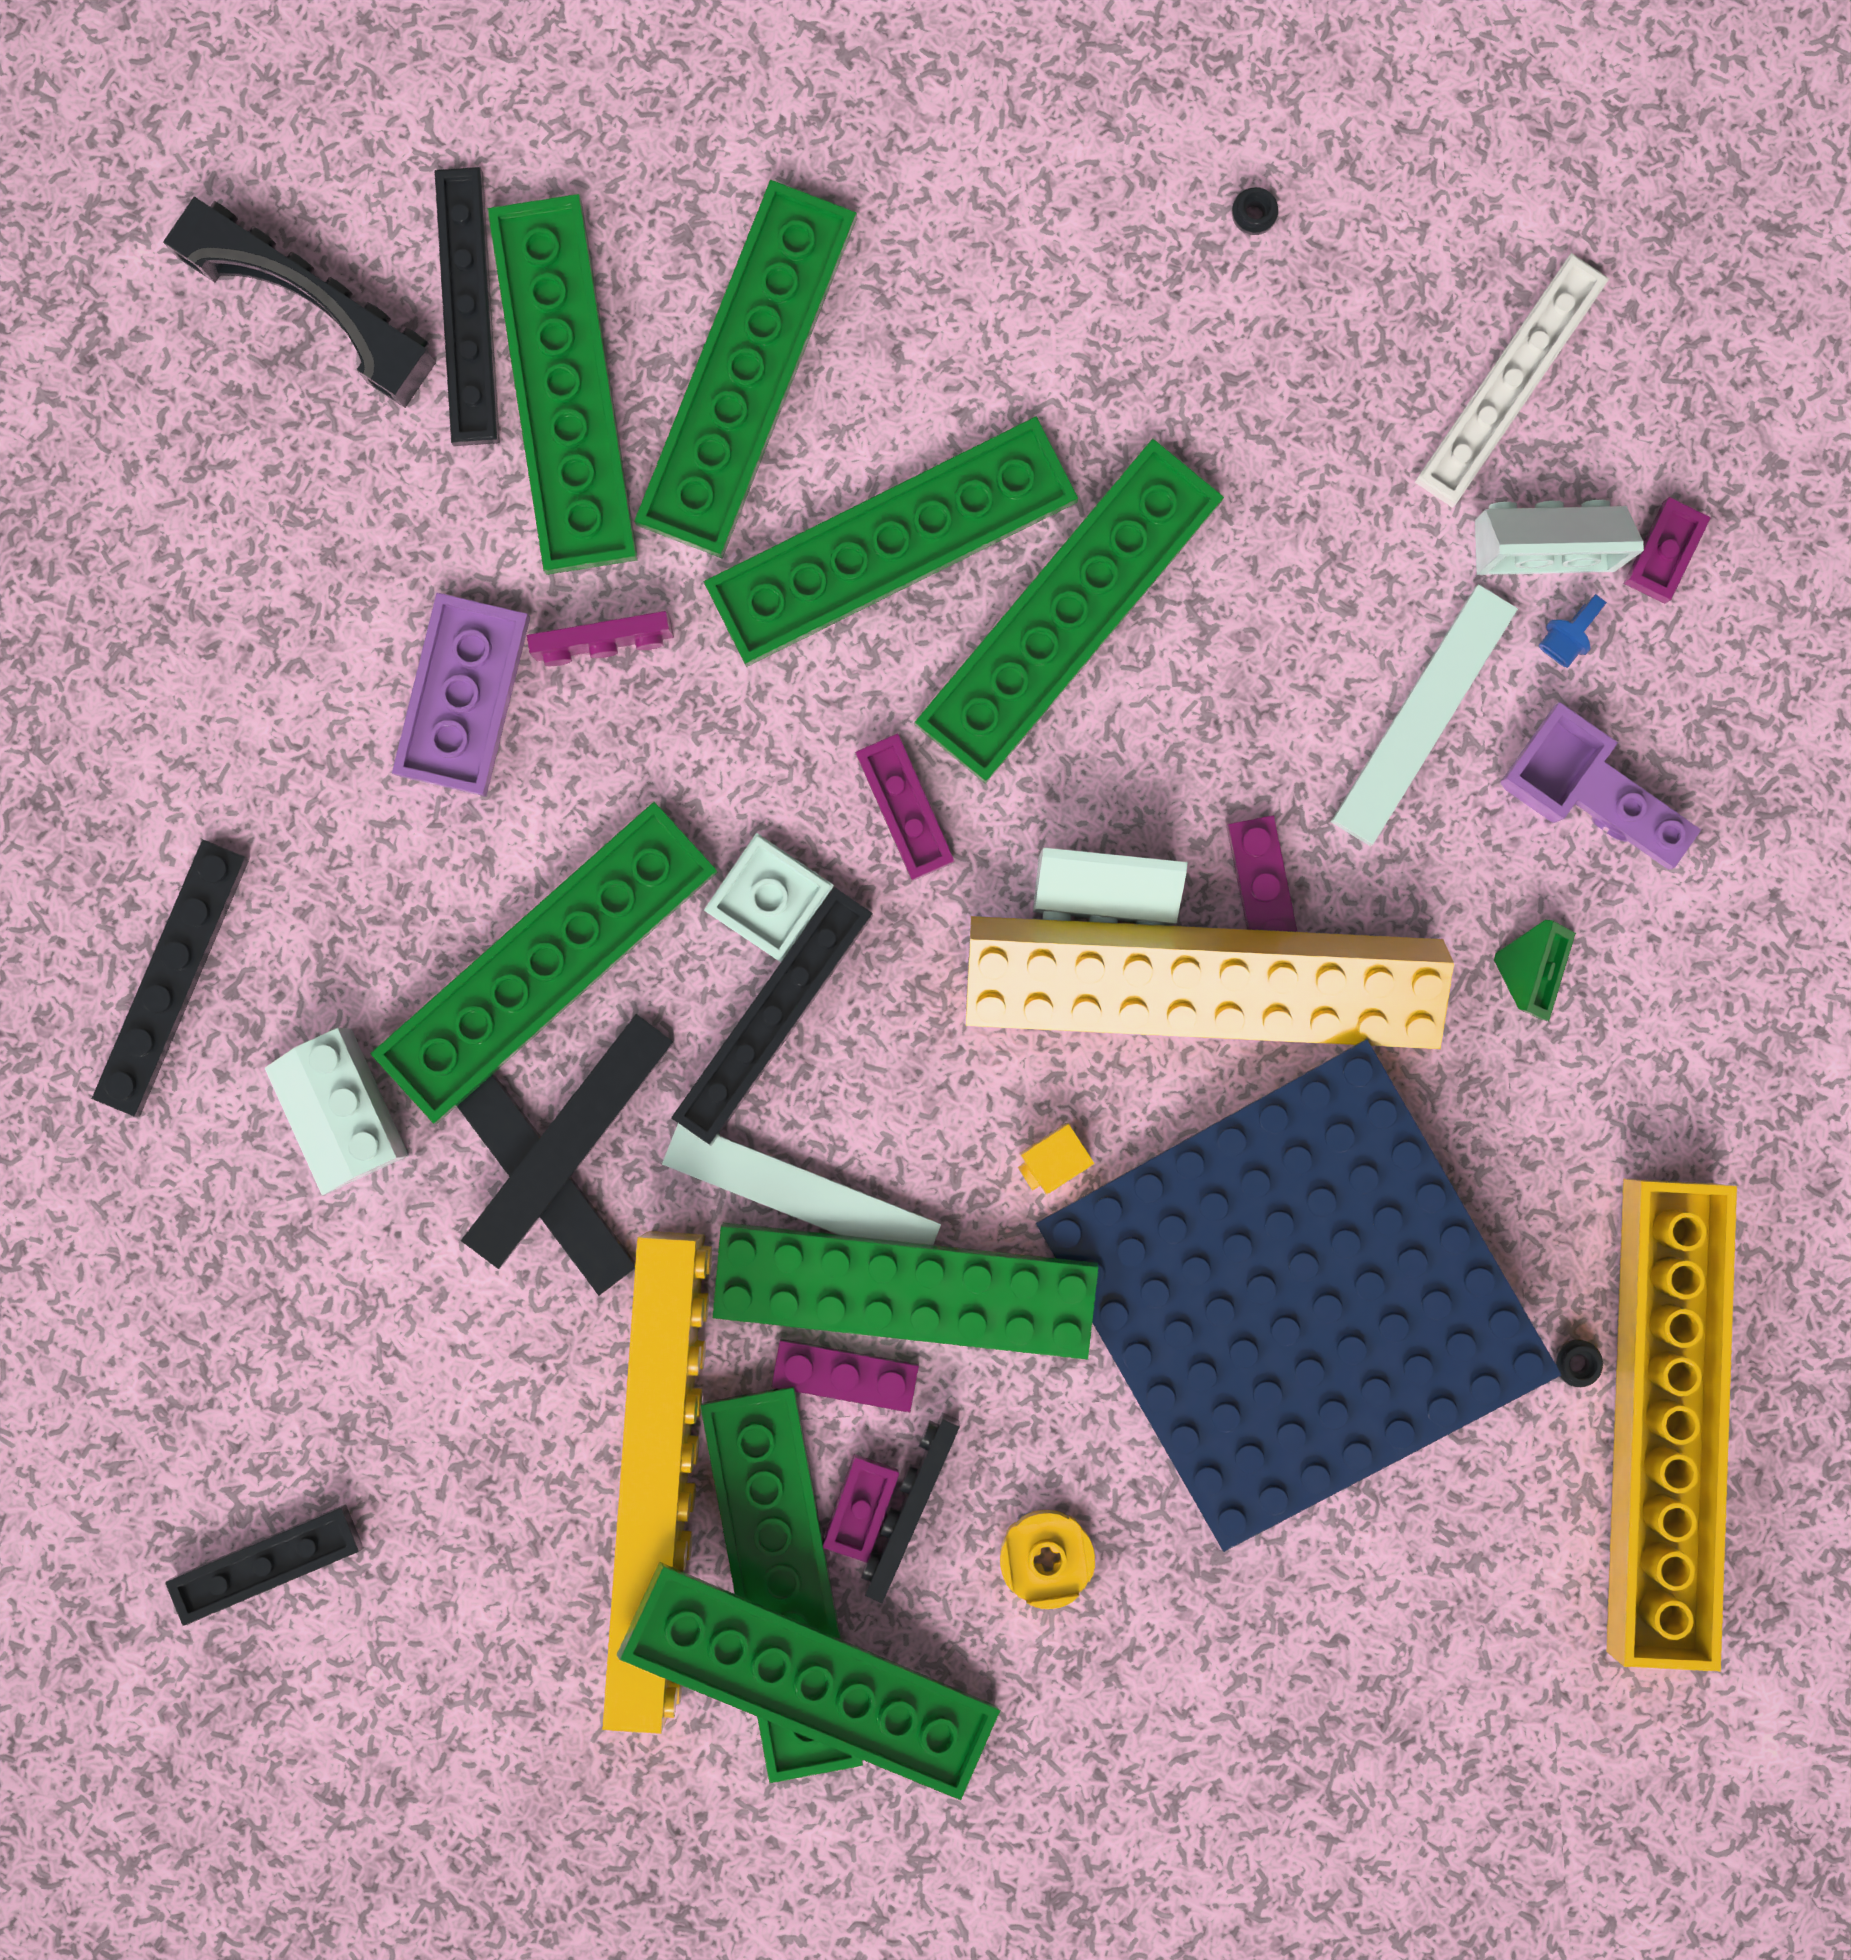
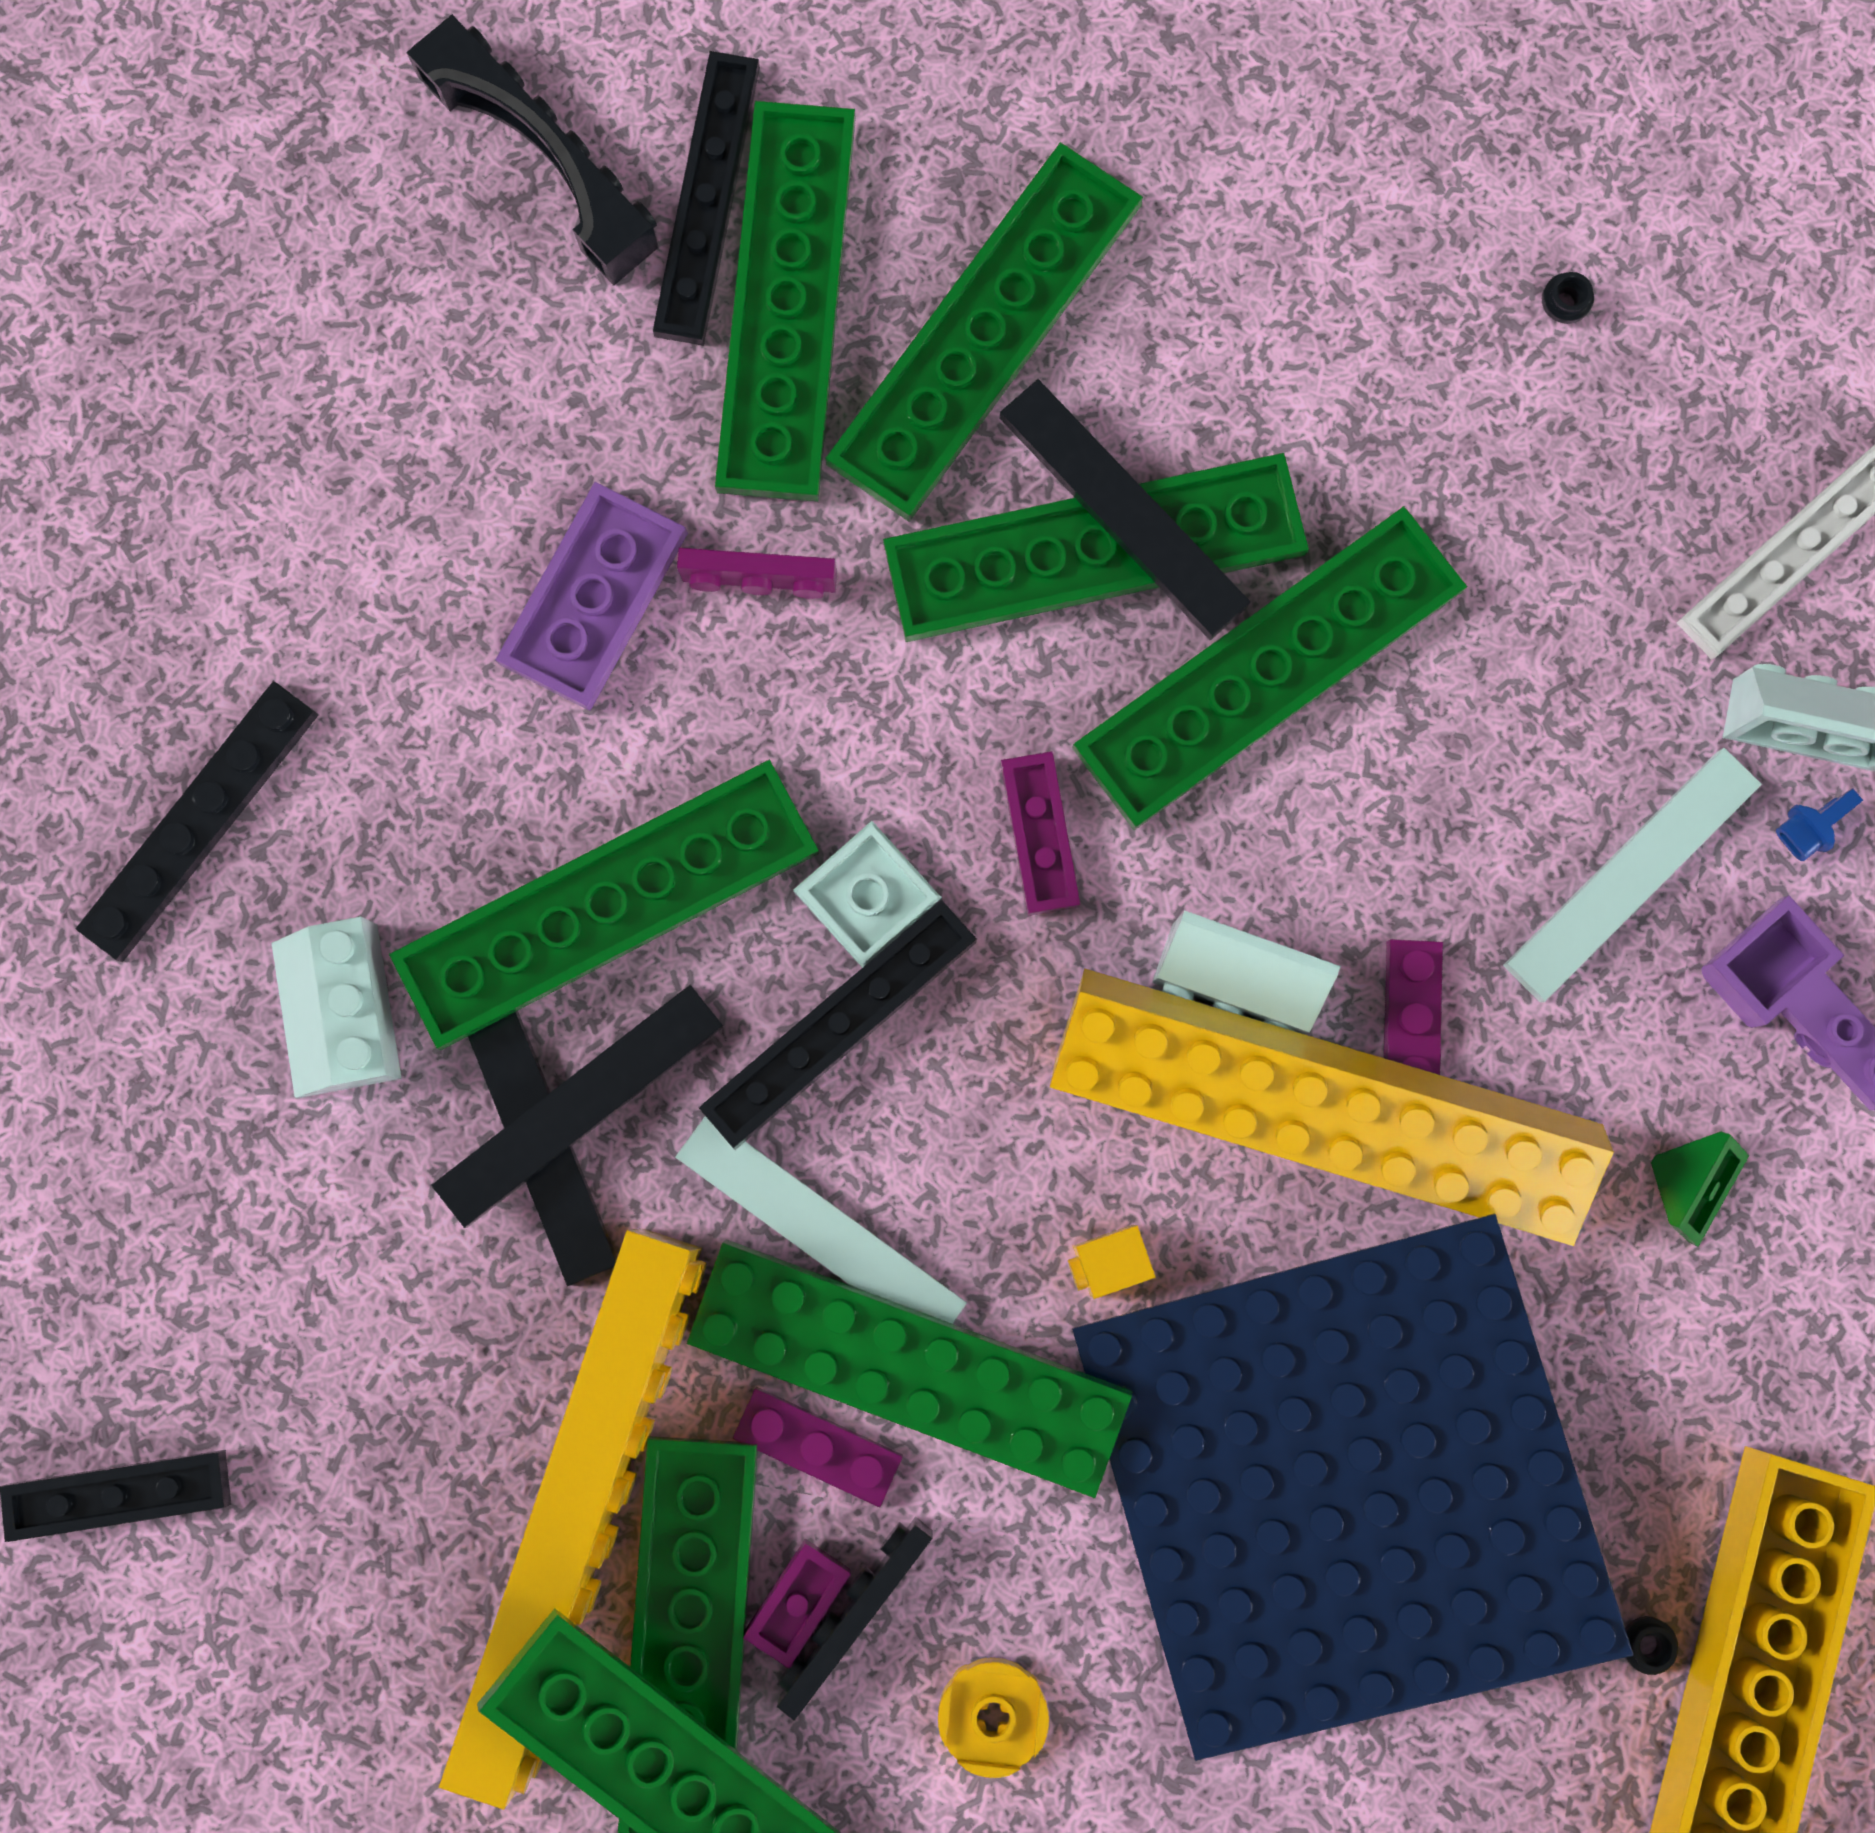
camera: 15 degrees right, 5 degrees down
(907, 502) = (1124, 509): none -> black tile

